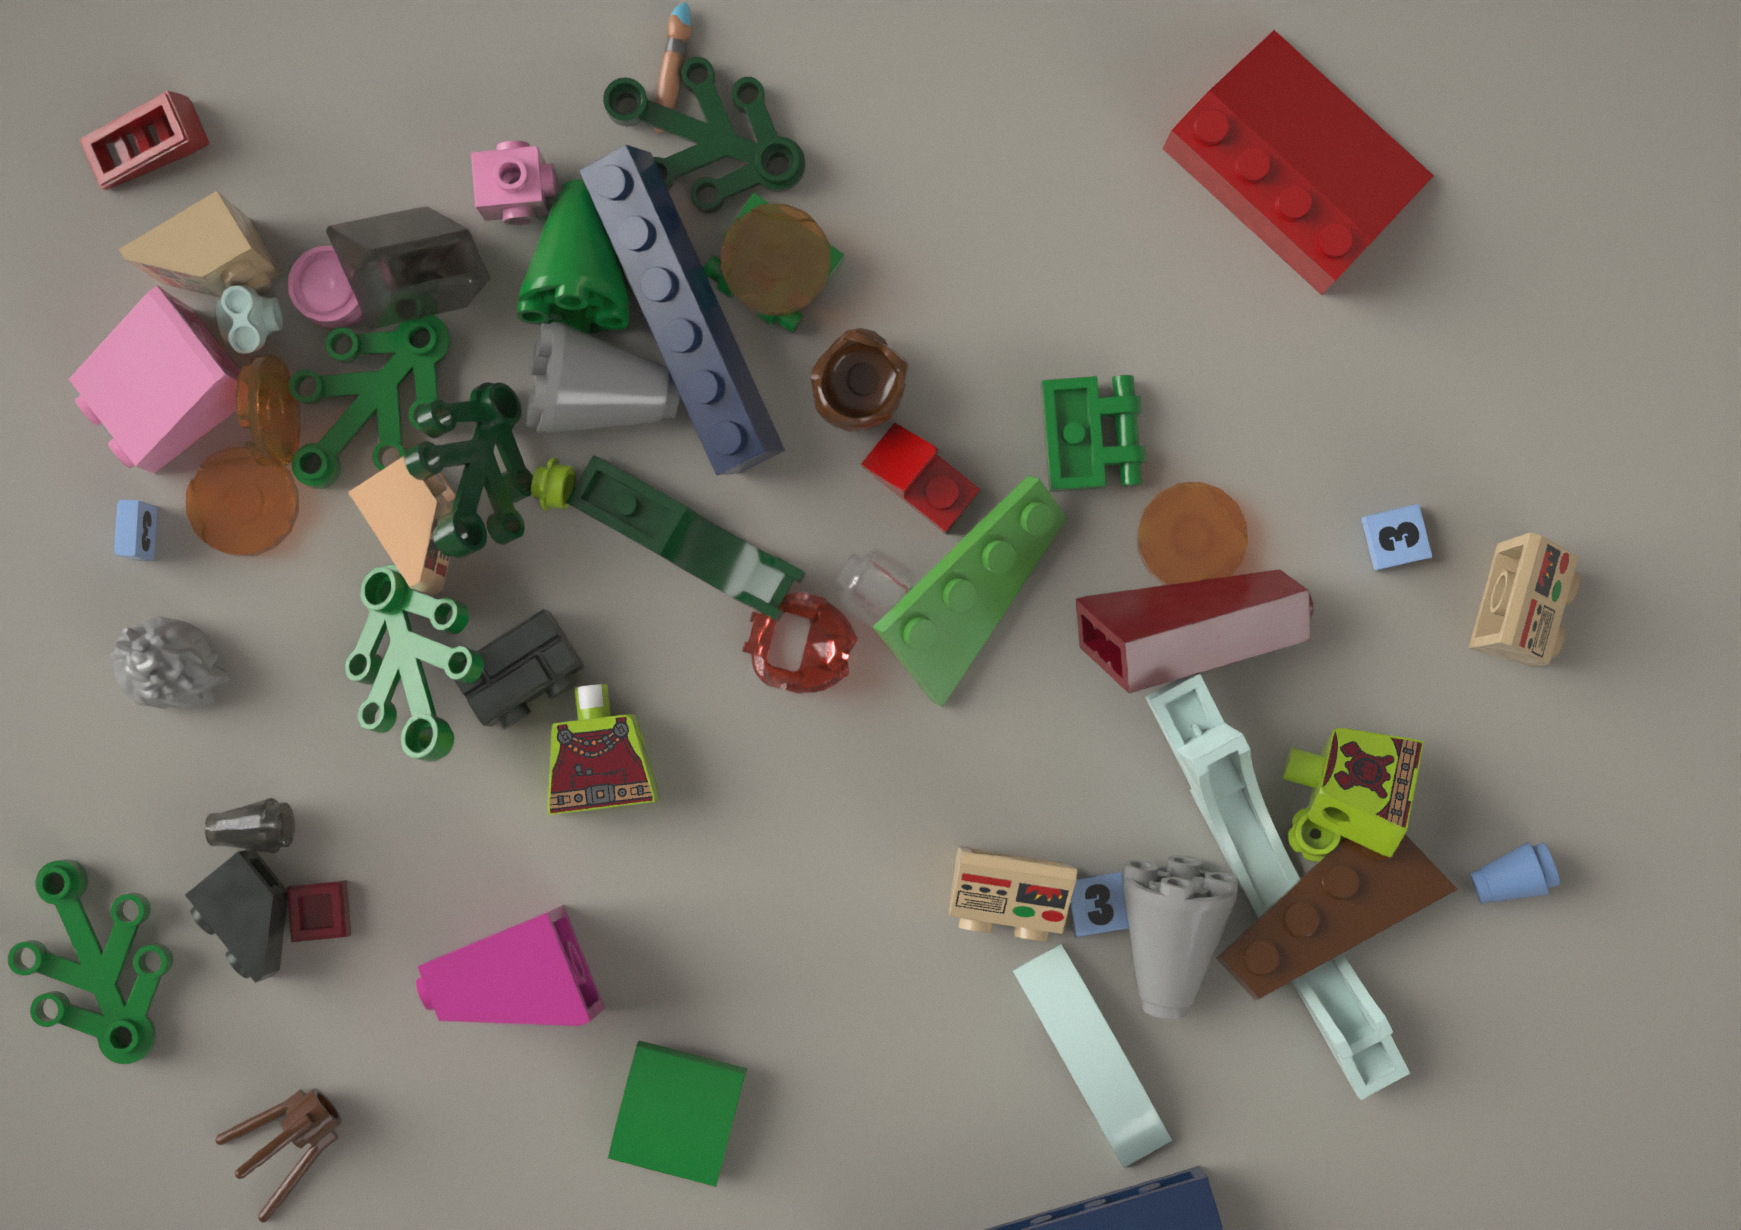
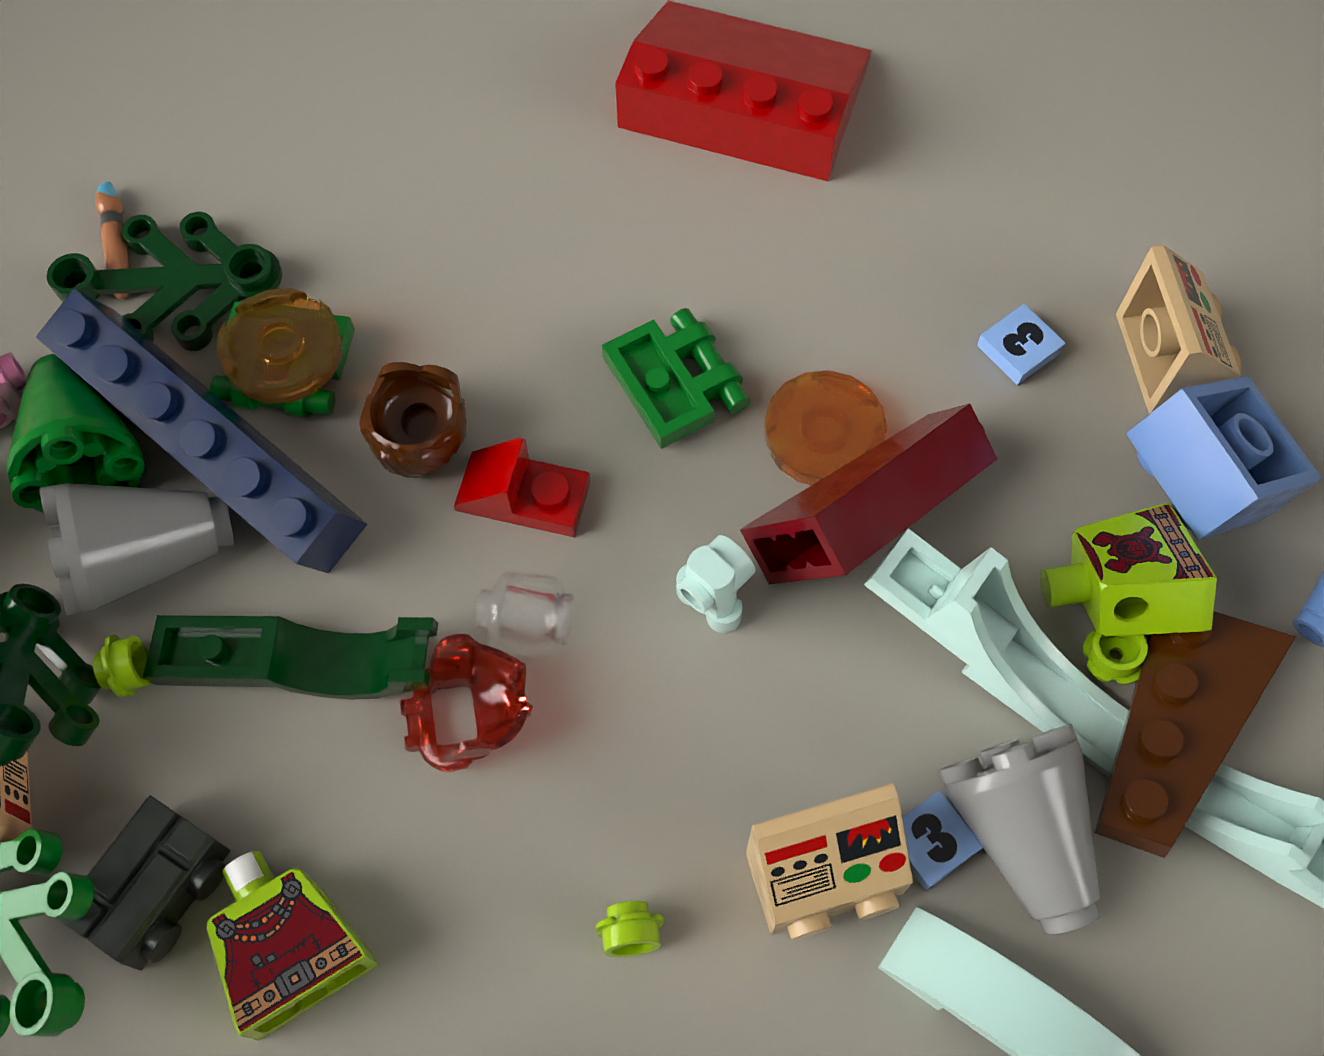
camera: 25 degrees left, 20 degrees down
(848, 864) = (630, 929): none -> lime plate
(965, 595) = (622, 579): bright green wing -> none
(1032, 636) = (712, 580): none -> light aqua plate
(1488, 727) = (1222, 456): none -> medium blue brick

